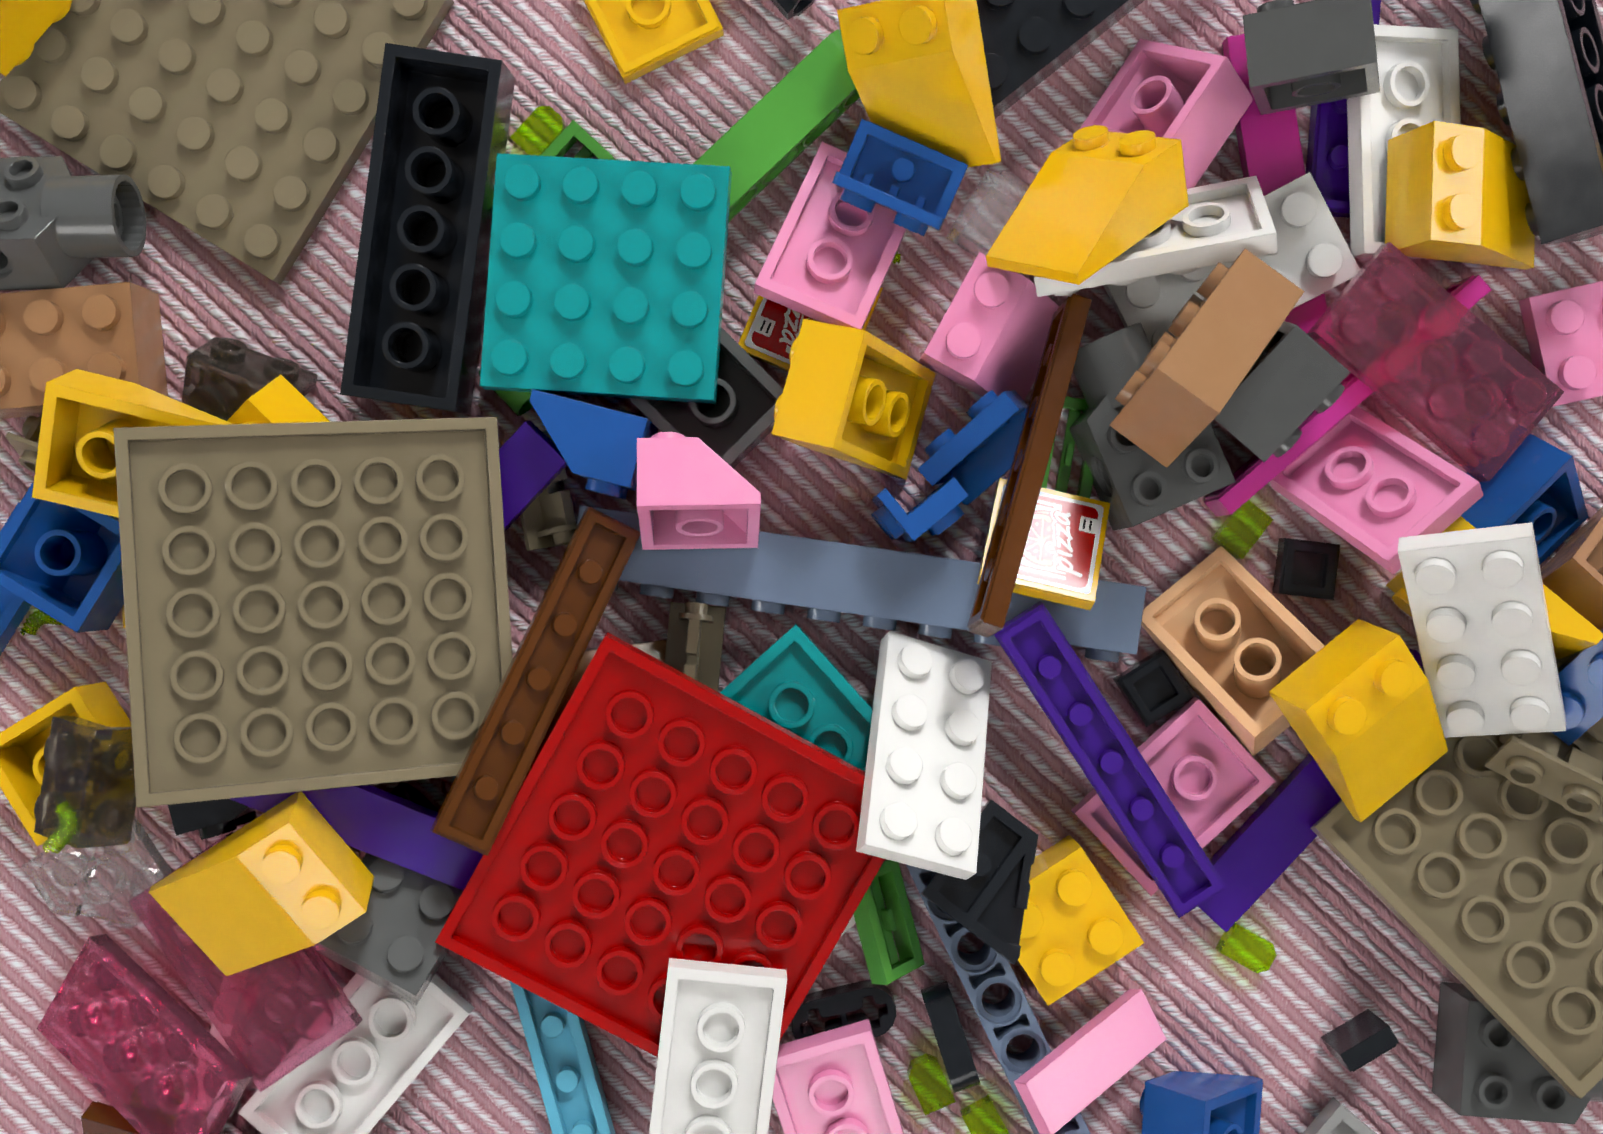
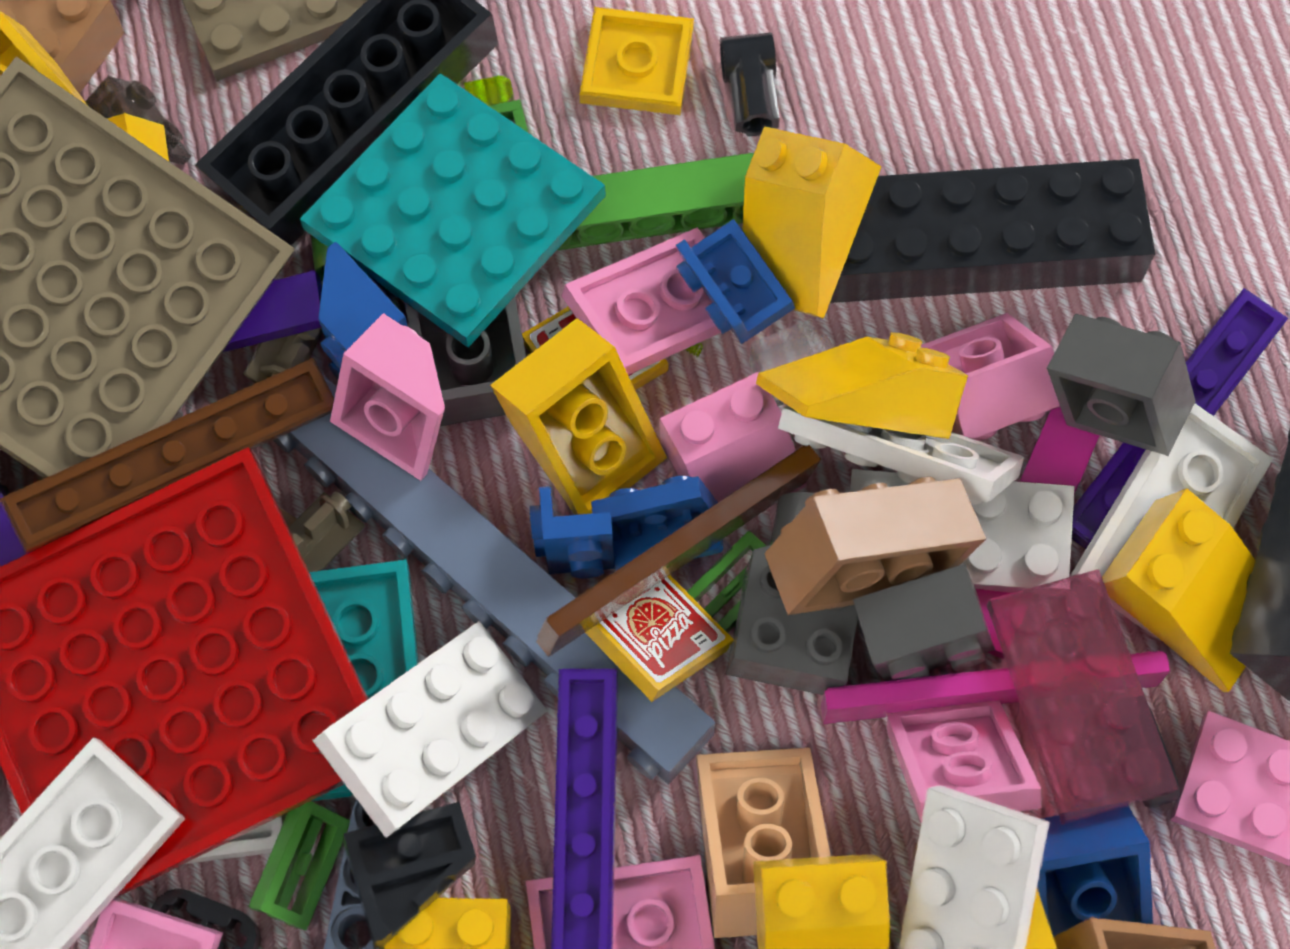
camera: 30 degrees right, 20 degrees down
(1153, 687) = (669, 828): black tile -> none
(1242, 529) = (837, 745): clear neon green piece -> none
(1306, 568) = (870, 815): black tile -> none

